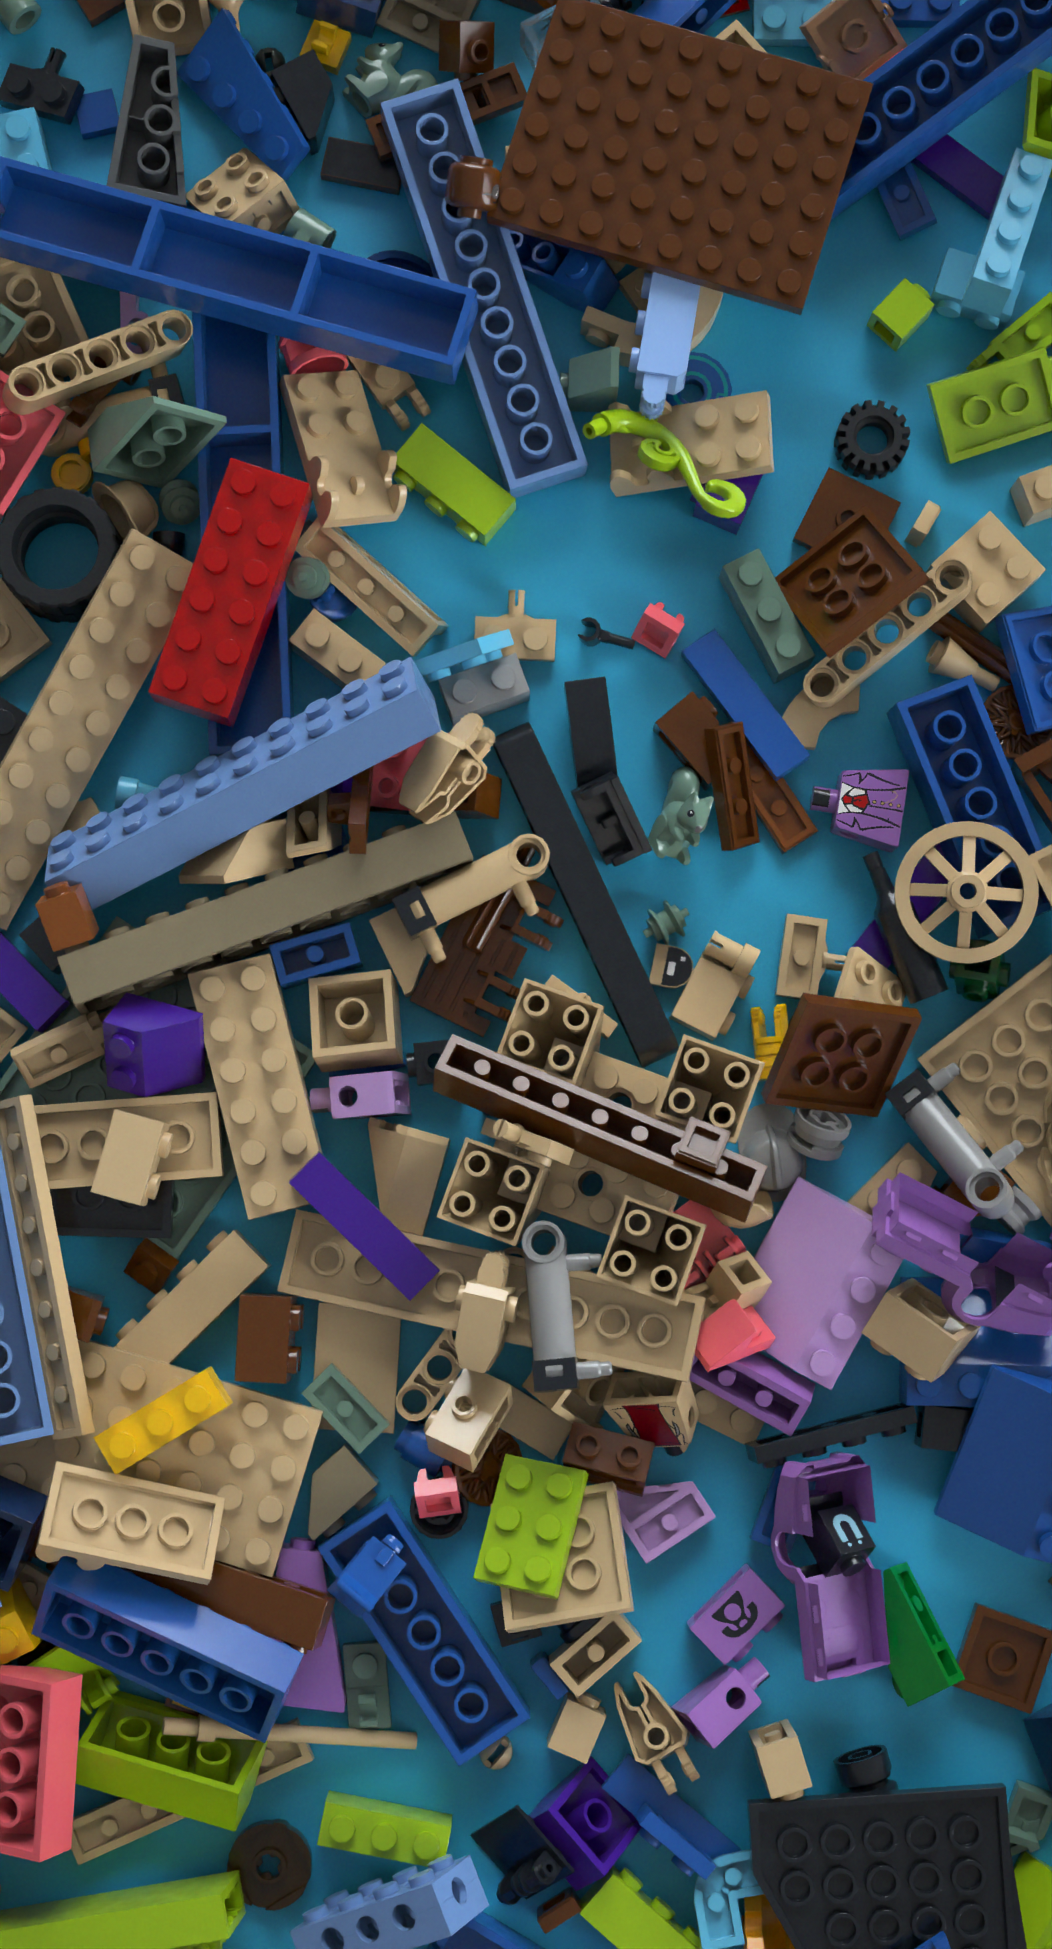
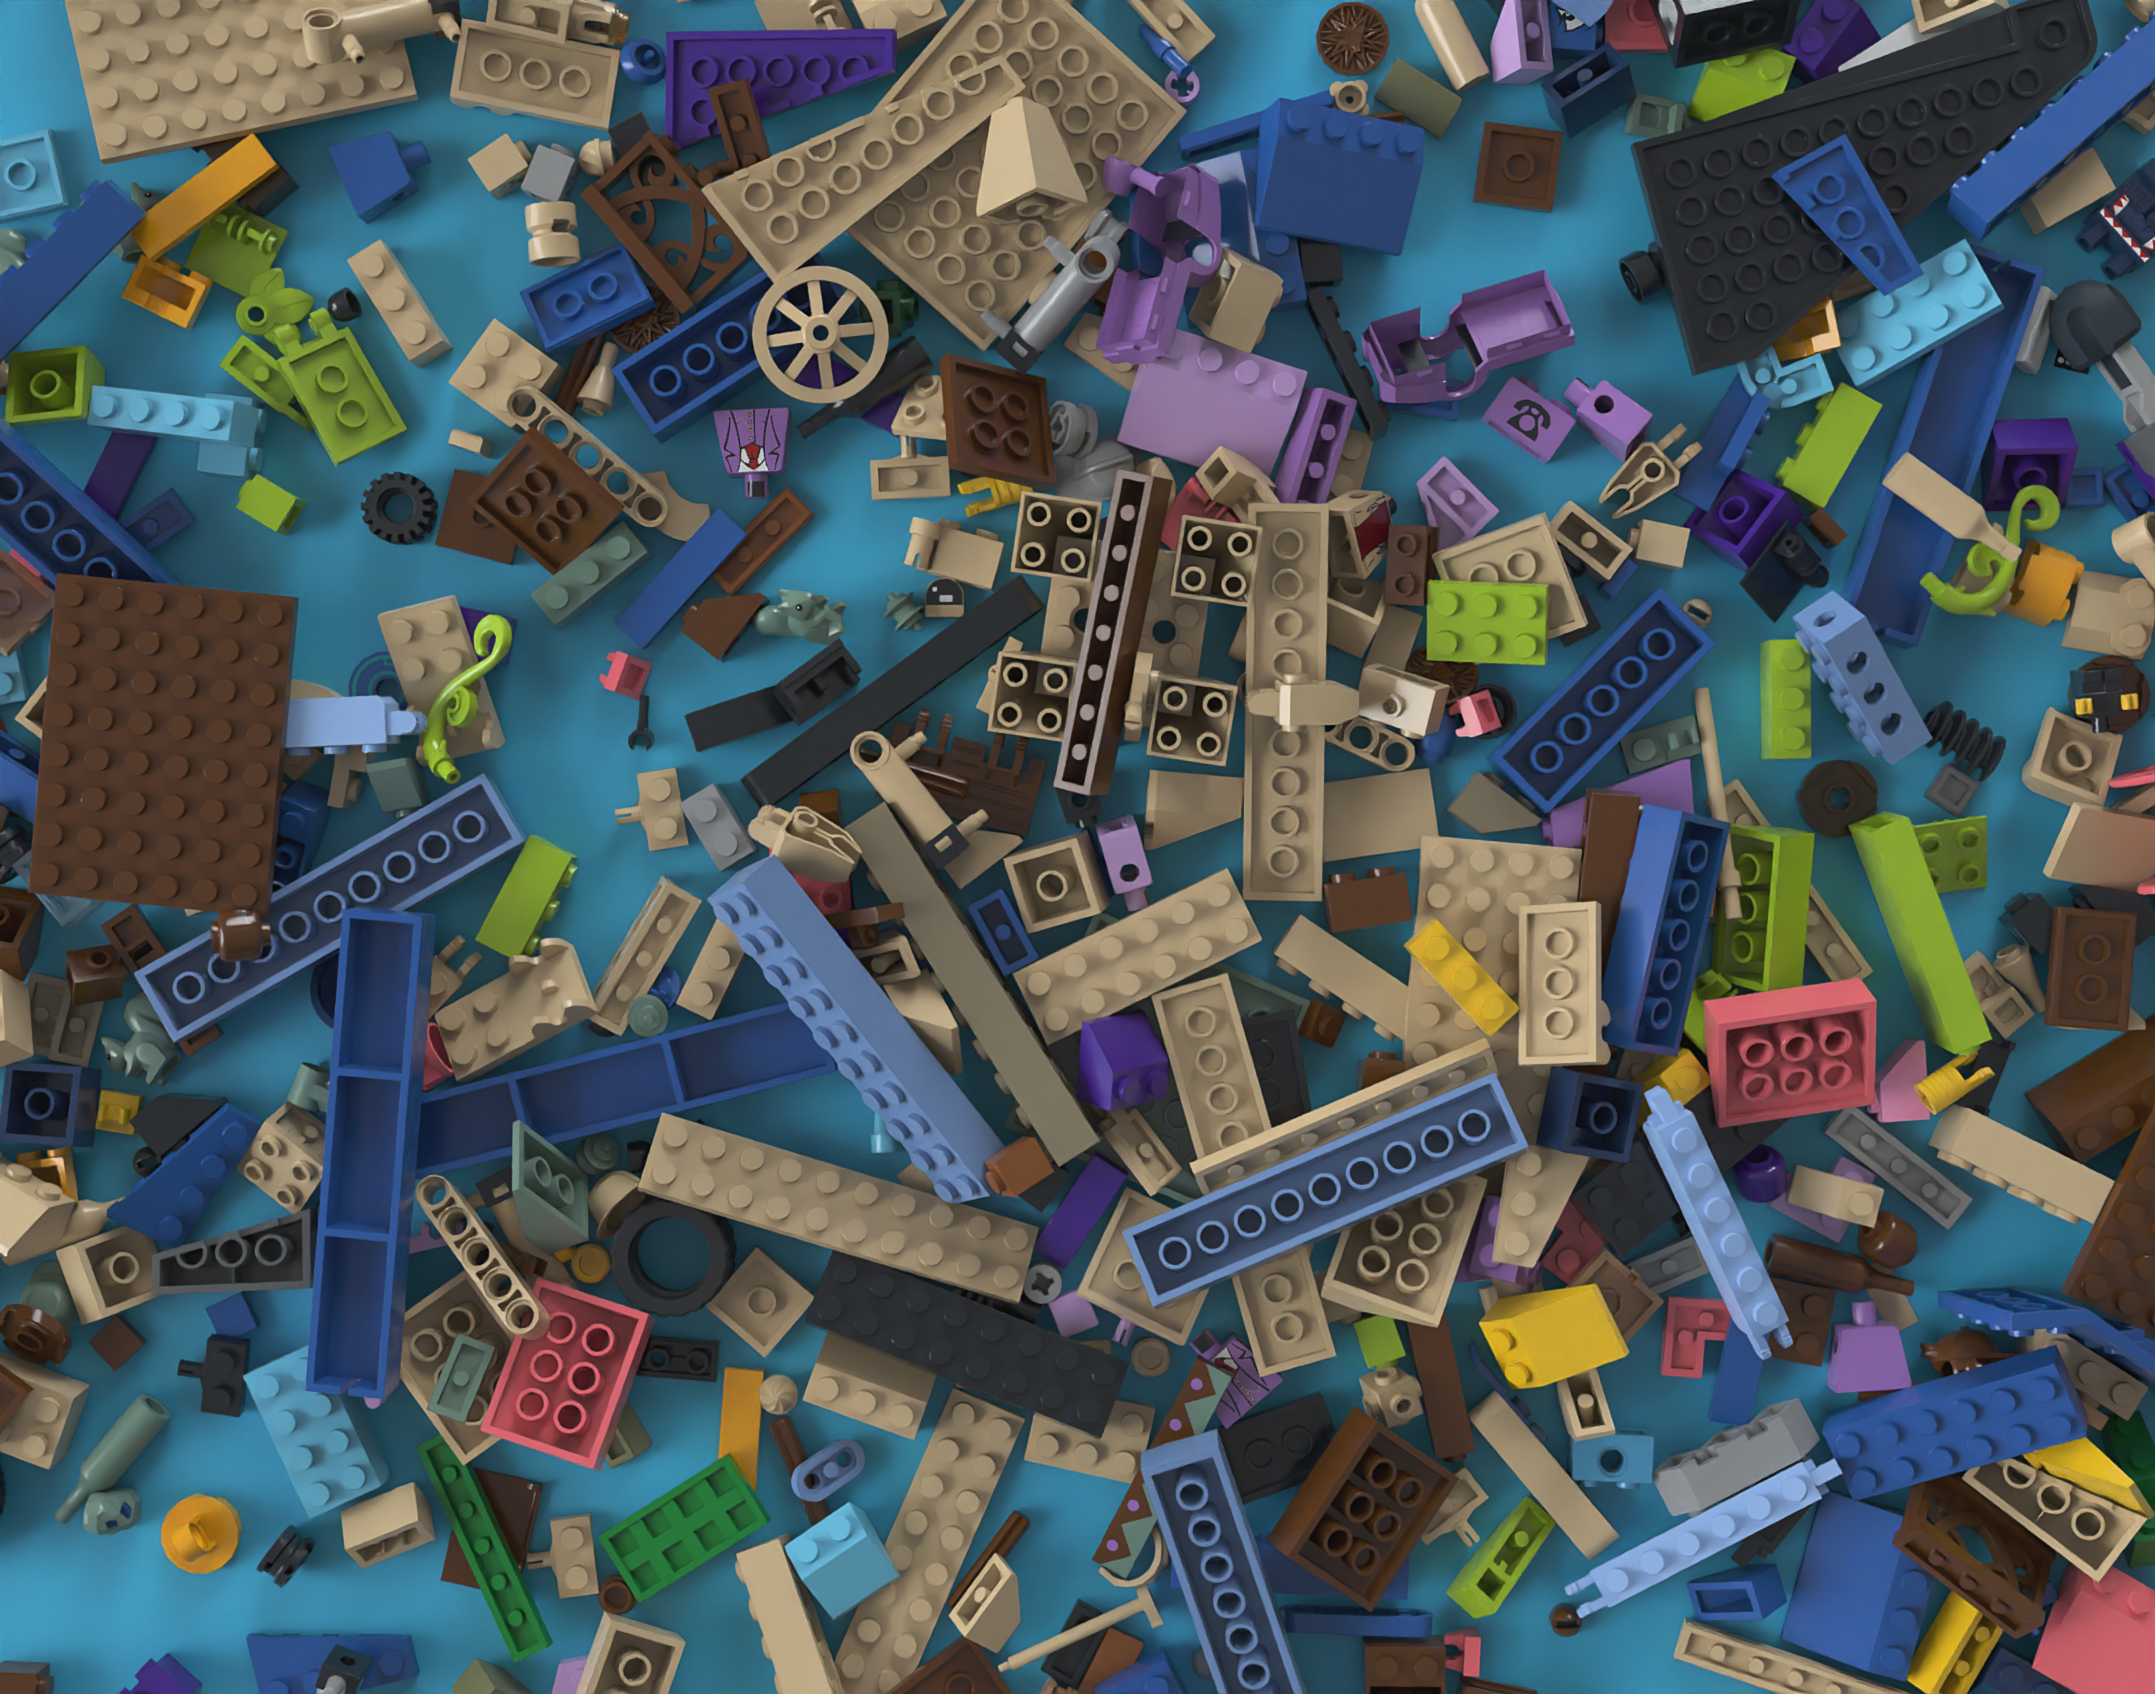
camera: 95 degrees left, 5 degrees up
(132, 1158) = (1229, 1058): tan brick -> none
(231, 592) = (679, 1081): red brick -> none
(345, 1408) = (1415, 815): sand green plate -> none
(359, 166) = (232, 1054): black tile -> none
(364, 1225) = (1246, 831): dark purple tile -> none
(368, 1574) = (1562, 760): blue piece -> none
(464, 656) = (691, 850): medium azure plate -> none
(551, 1313) = (1291, 641): light grey piece -> none
(702, 1145) = (1110, 532): tile -> none
(731, 1335) = (1277, 473): coral slope -> none
(732, 785) = (762, 575): reddish brown tile -> none
(780, 1760) = (1650, 352): tan brick -> none
(839, 1541) = (1443, 336): black brick -> none
(917, 1648) = (1524, 247): green slope -> none

